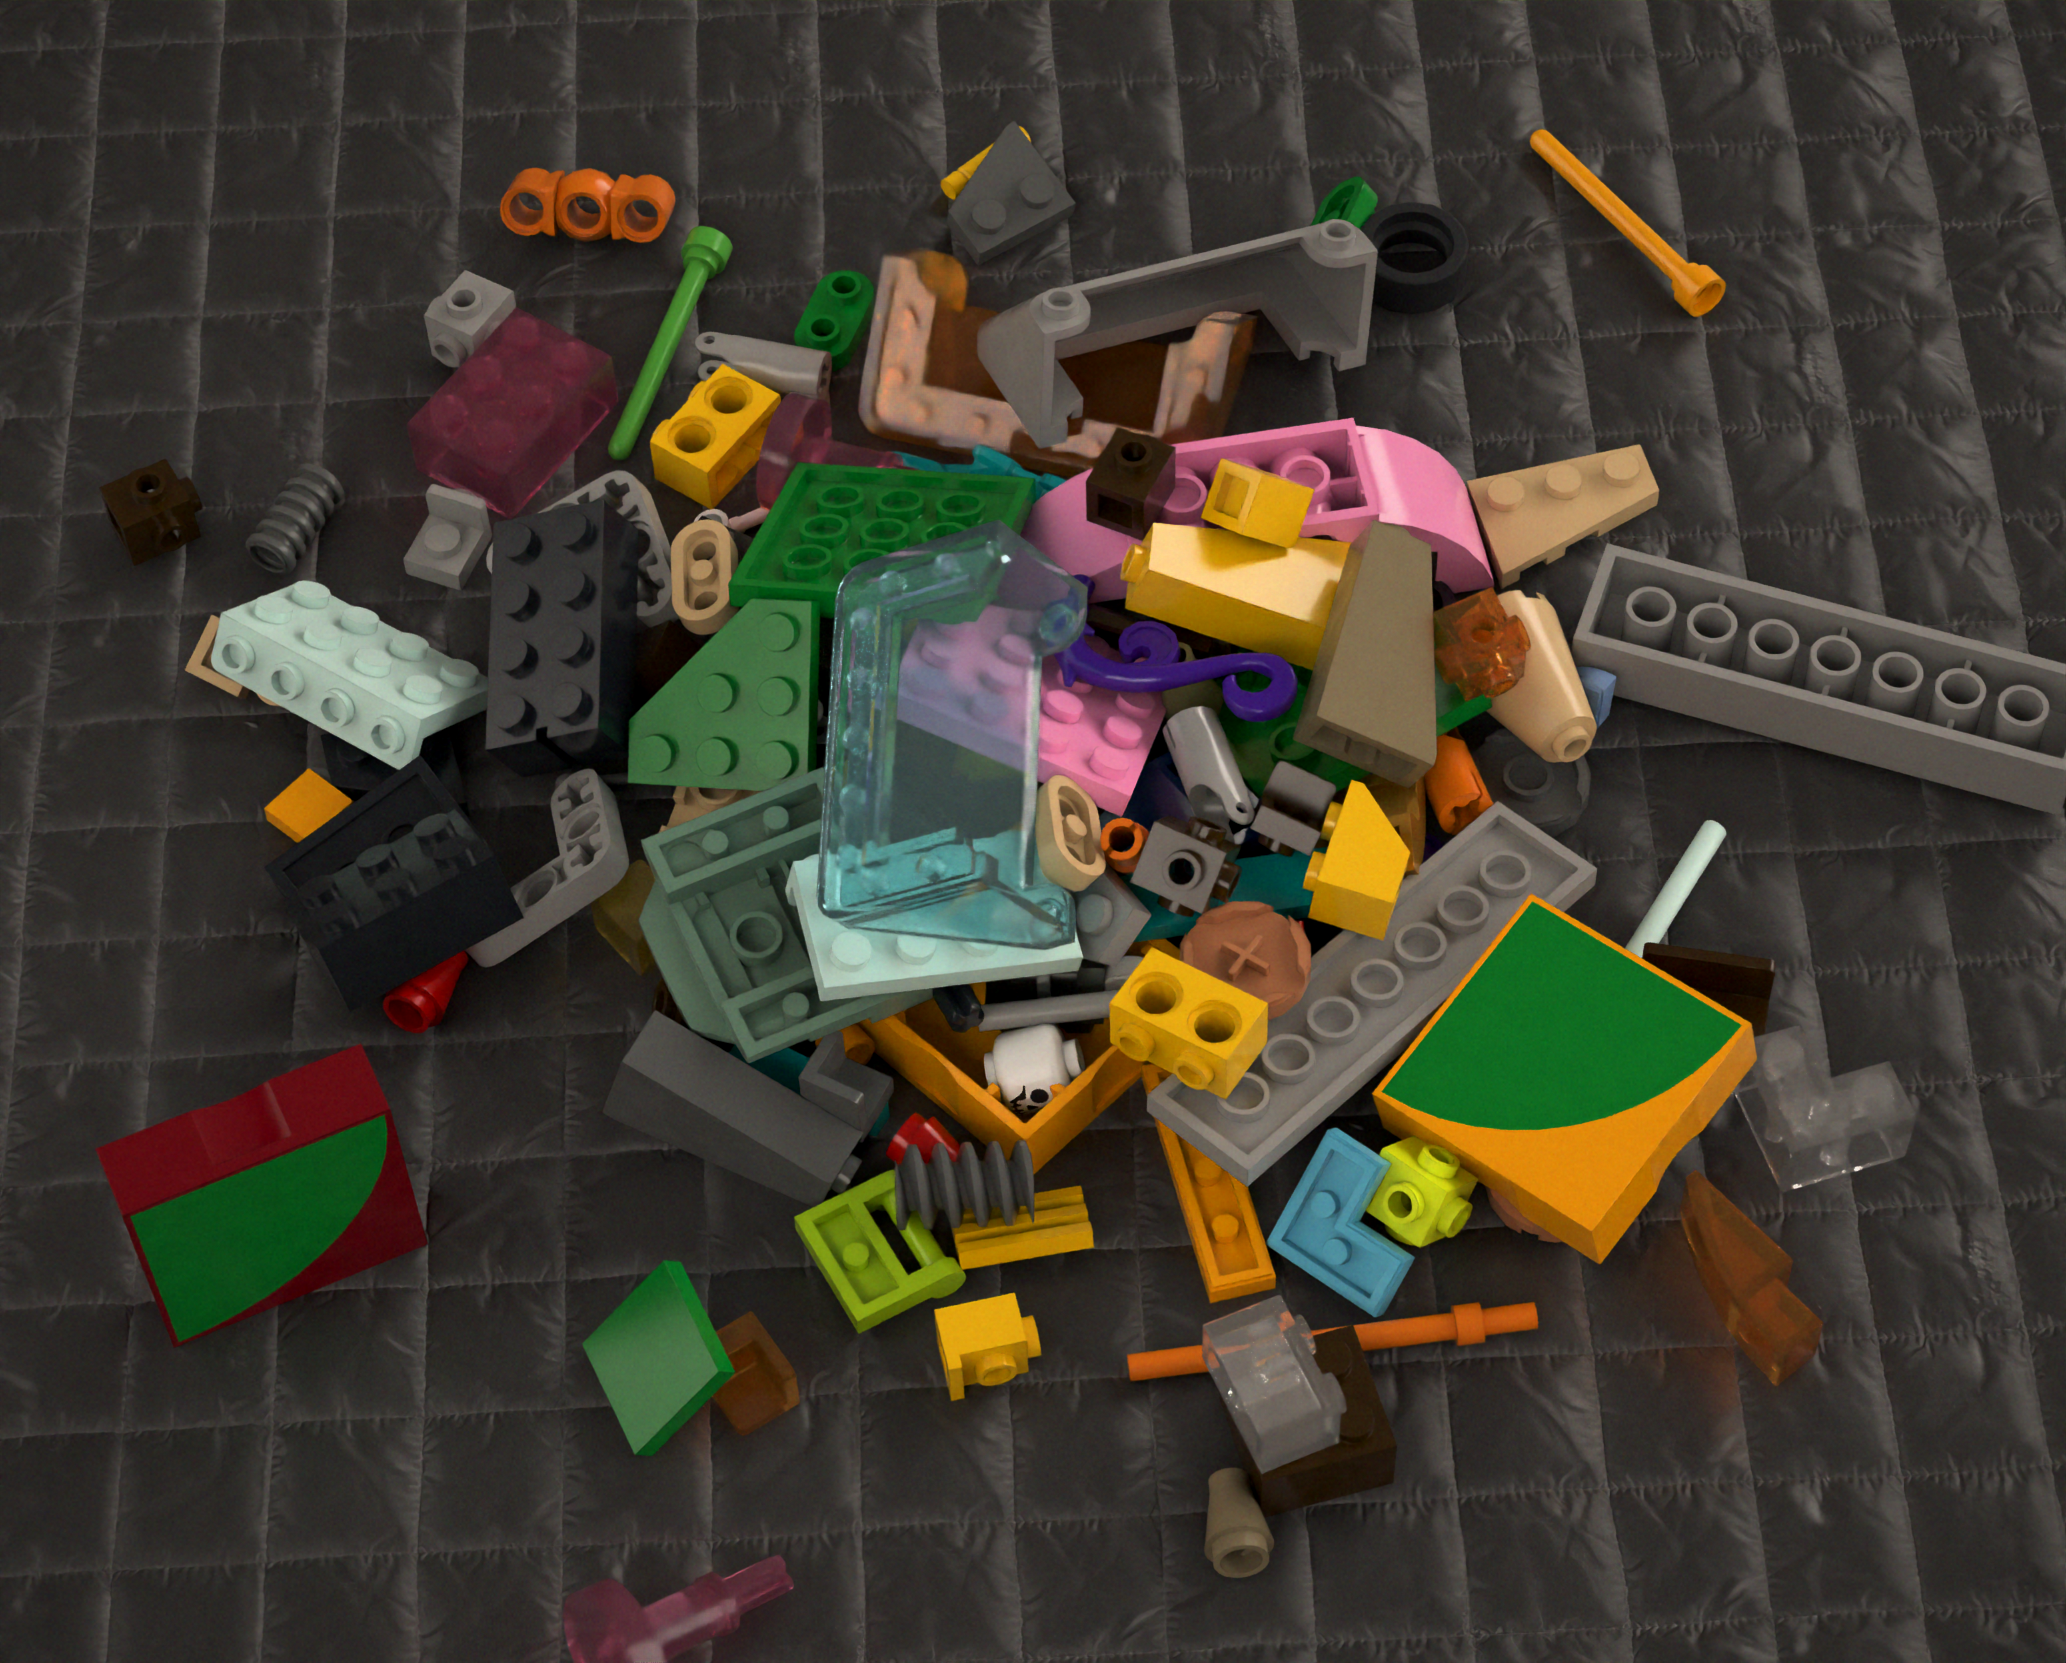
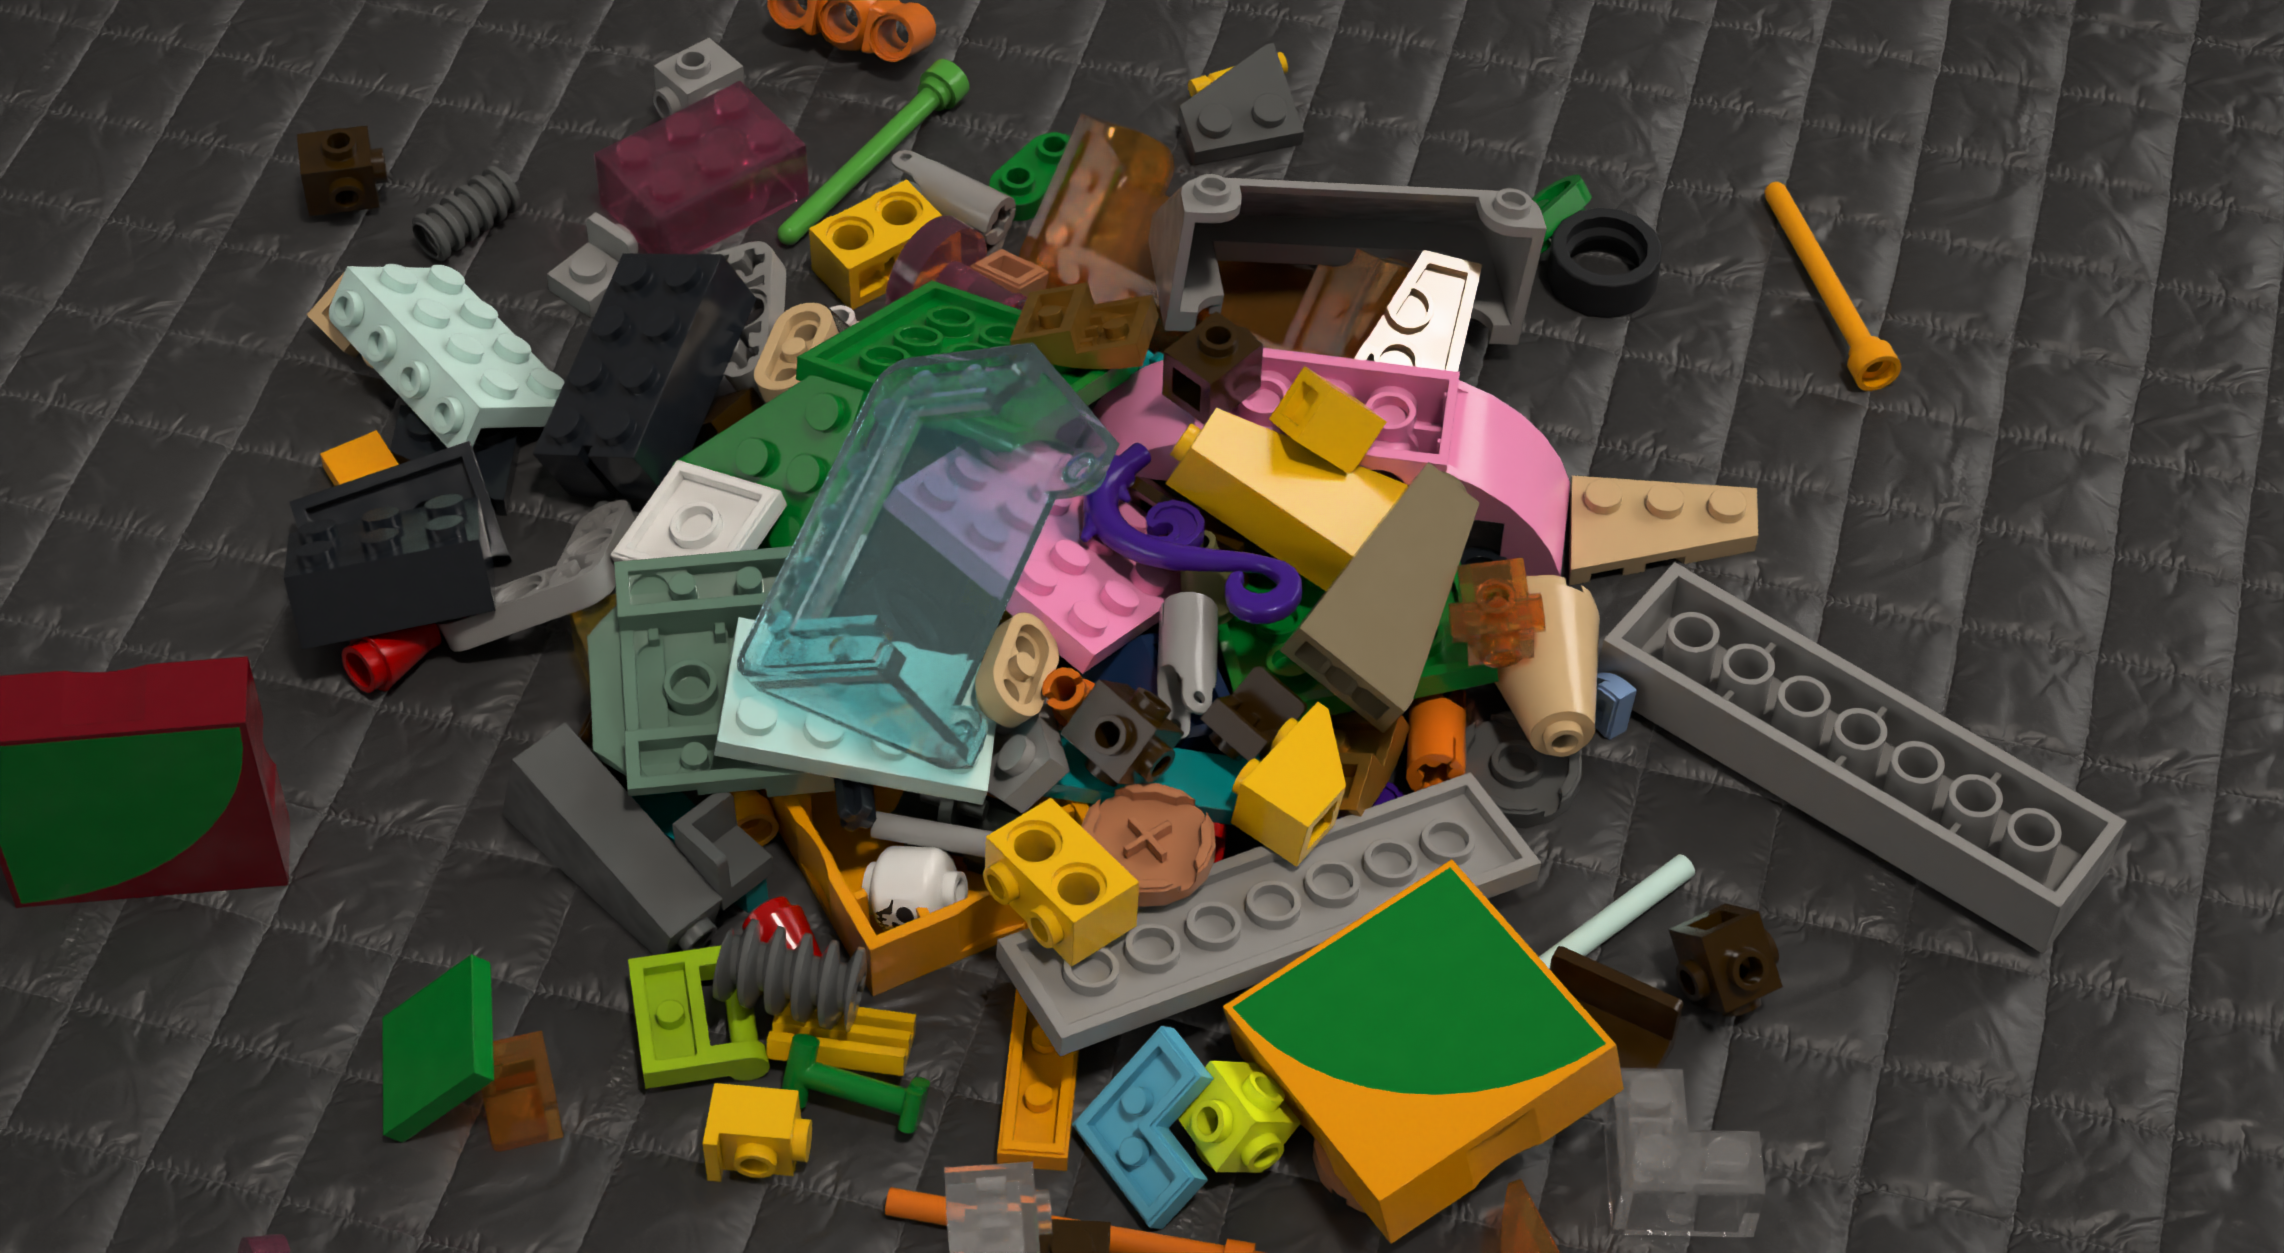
camera: 15 degrees right, 5 degrees down
(687, 771) = (700, 514): none -> white plate
(863, 430) = (1012, 272): none -> nougat slope
(978, 477) = (1086, 334): none -> pearl gold slope
(1005, 1272) = (805, 1074): none -> green piece
(1278, 370) = (1427, 315): none -> wing
(1792, 908) = (1726, 959): none -> dark brown brick

